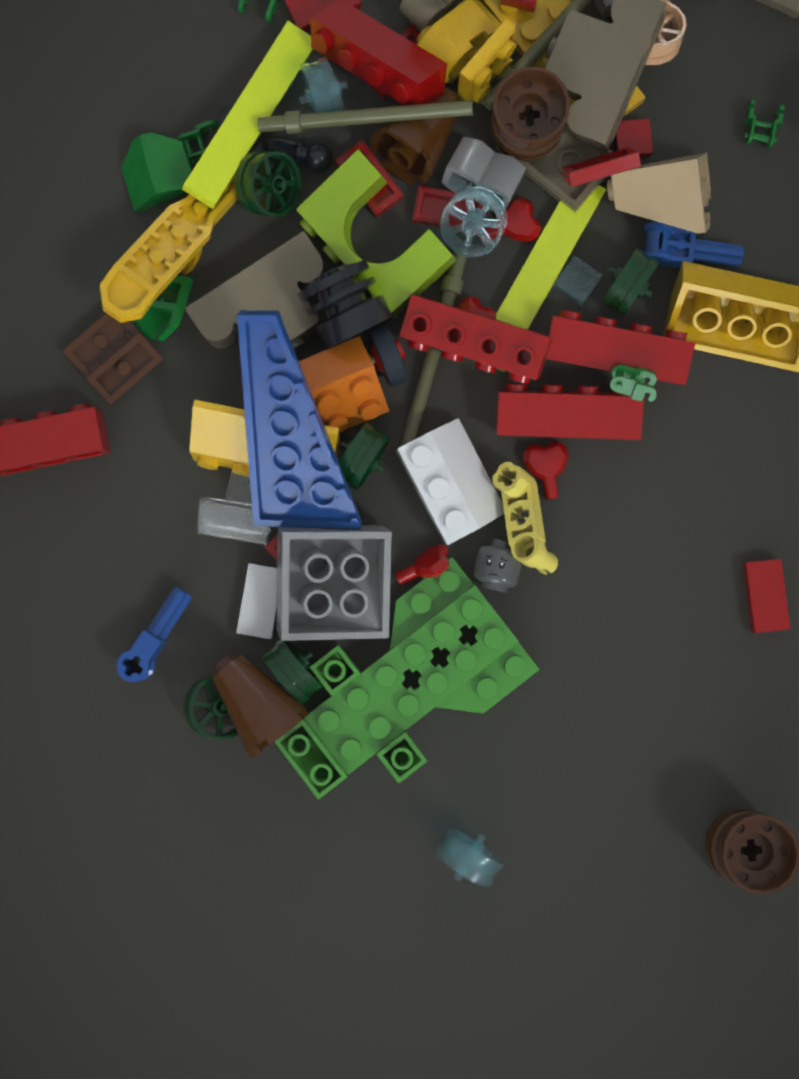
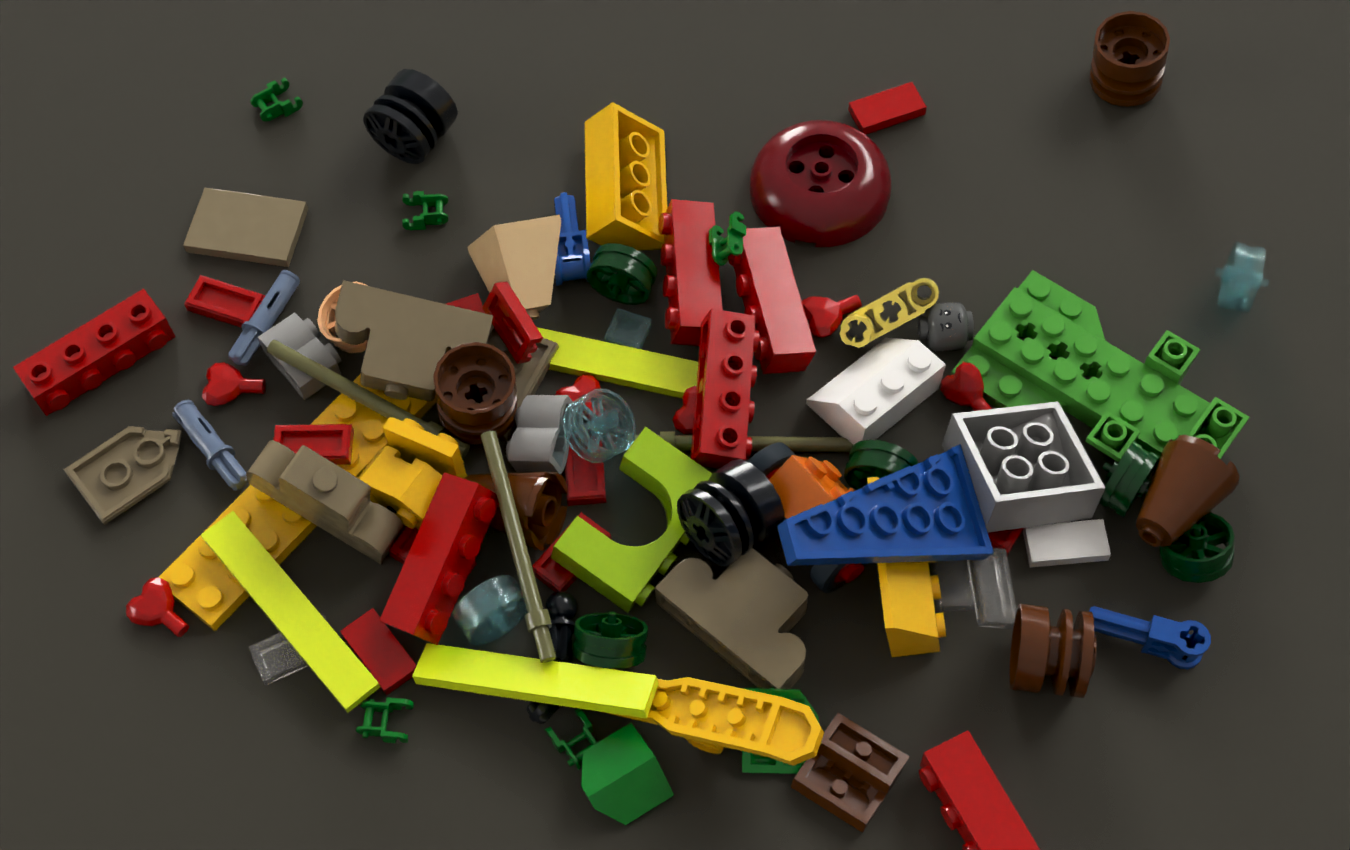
camera: 105 degrees left, 25 degrees down
(153, 544) = (1052, 650): none -> reddish brown wheel
(654, 514) = (815, 202): none -> dark red brick

